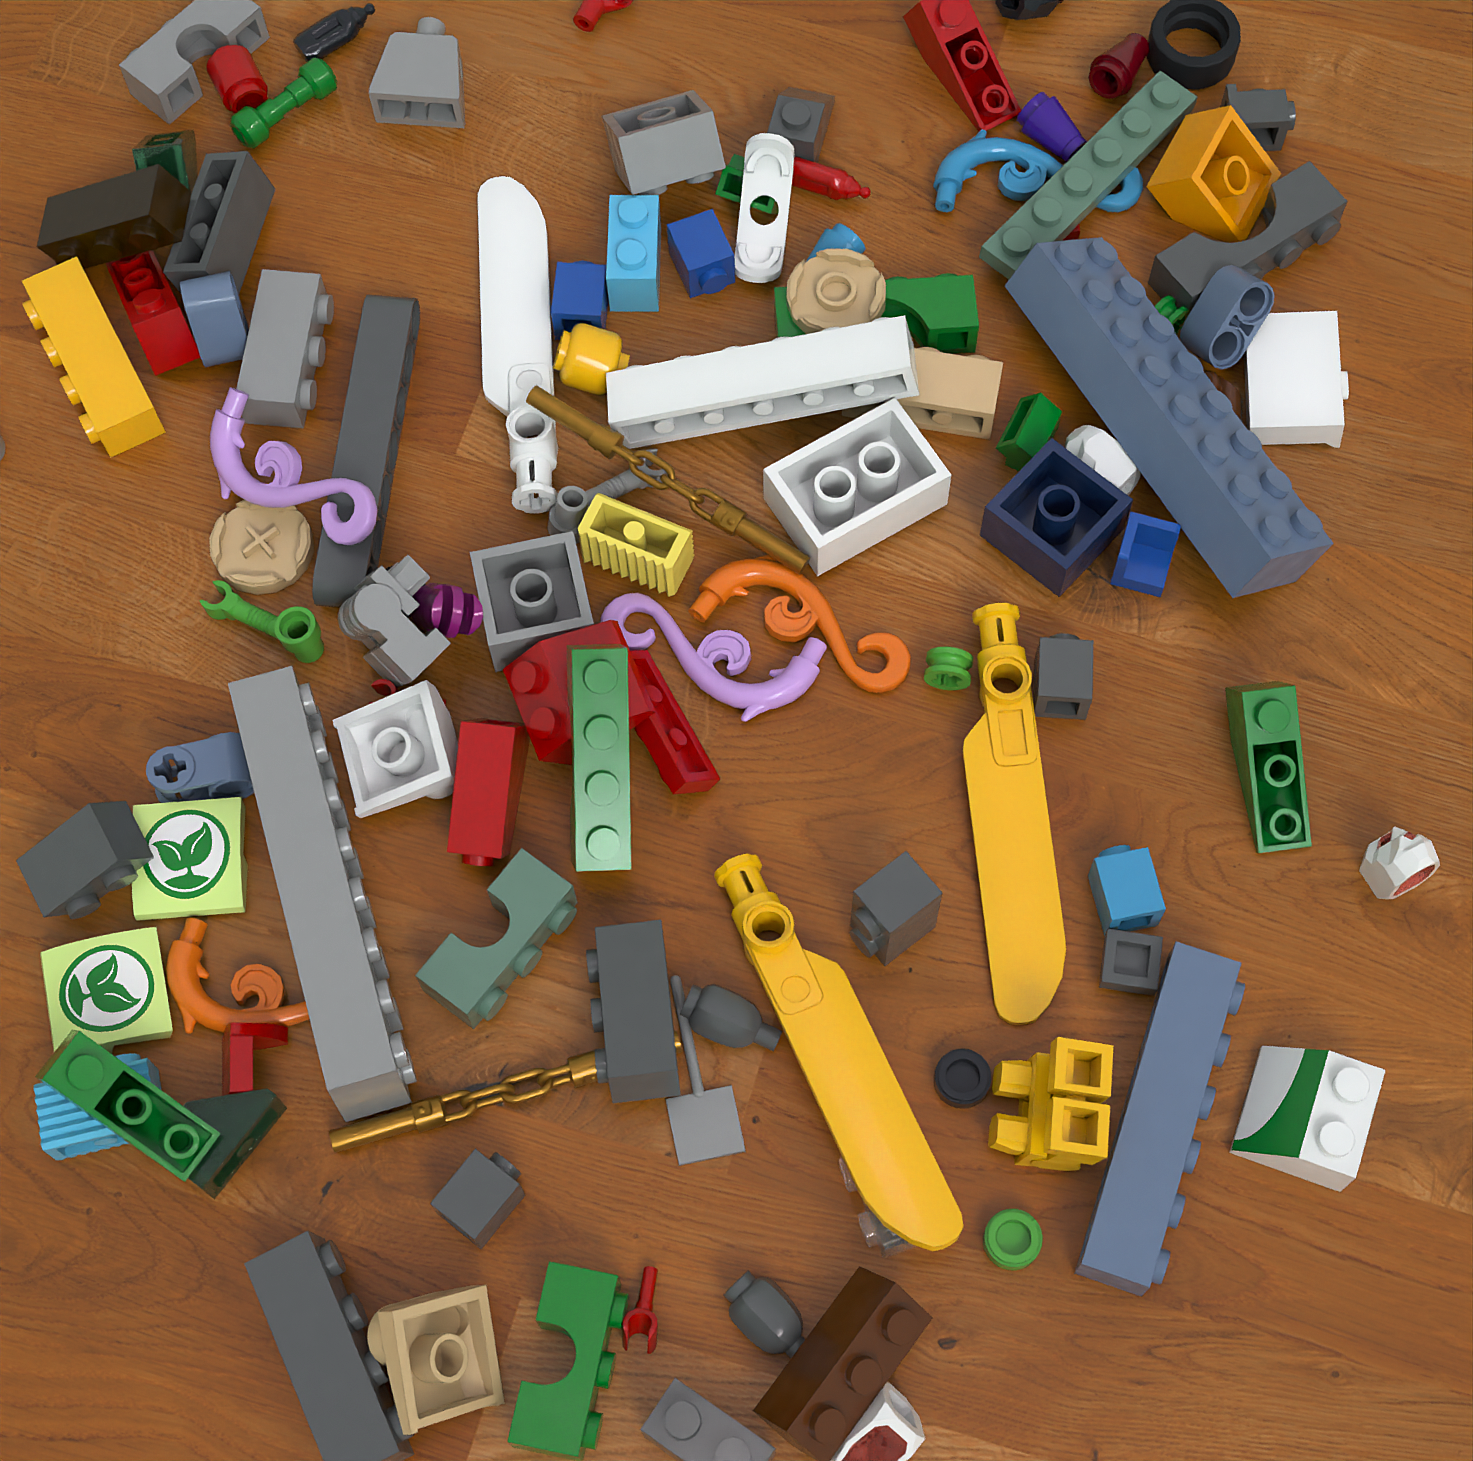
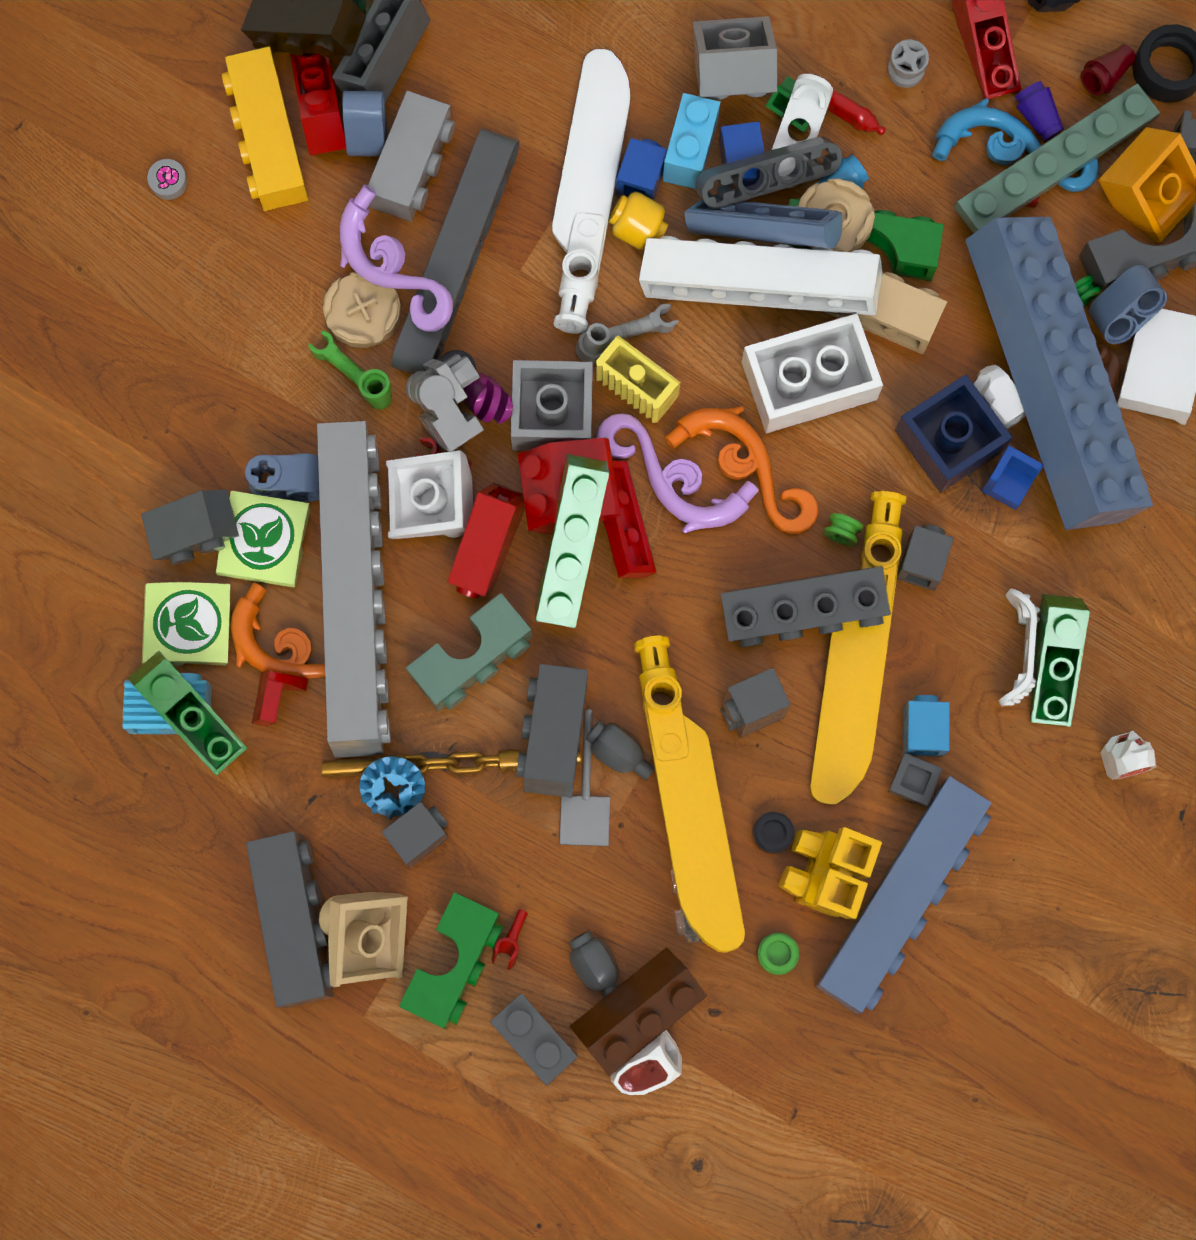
camera: 10 degrees right, 10 degrees up
(243, 1124) = (262, 742): clear green slope -> none
(436, 1117) = (399, 772): none -> dark azure gear
(725, 517) = (636, 296): pearl gold piece -> none
(737, 255) = (768, 166): none -> dark grey beam
(751, 319) = (767, 223): none -> sand blue brick
(803, 120) = (846, 59): dark grey slope -> none
(884, 102) = (911, 54): none -> light grey wheel
(926, 767) = (806, 604): none -> dark grey brick
(1028, 430) = (953, 358): green piece -> none
(1216, 720) = (1027, 616): none -> white piece
(1308, 1114) = (1008, 919): white slope -> none

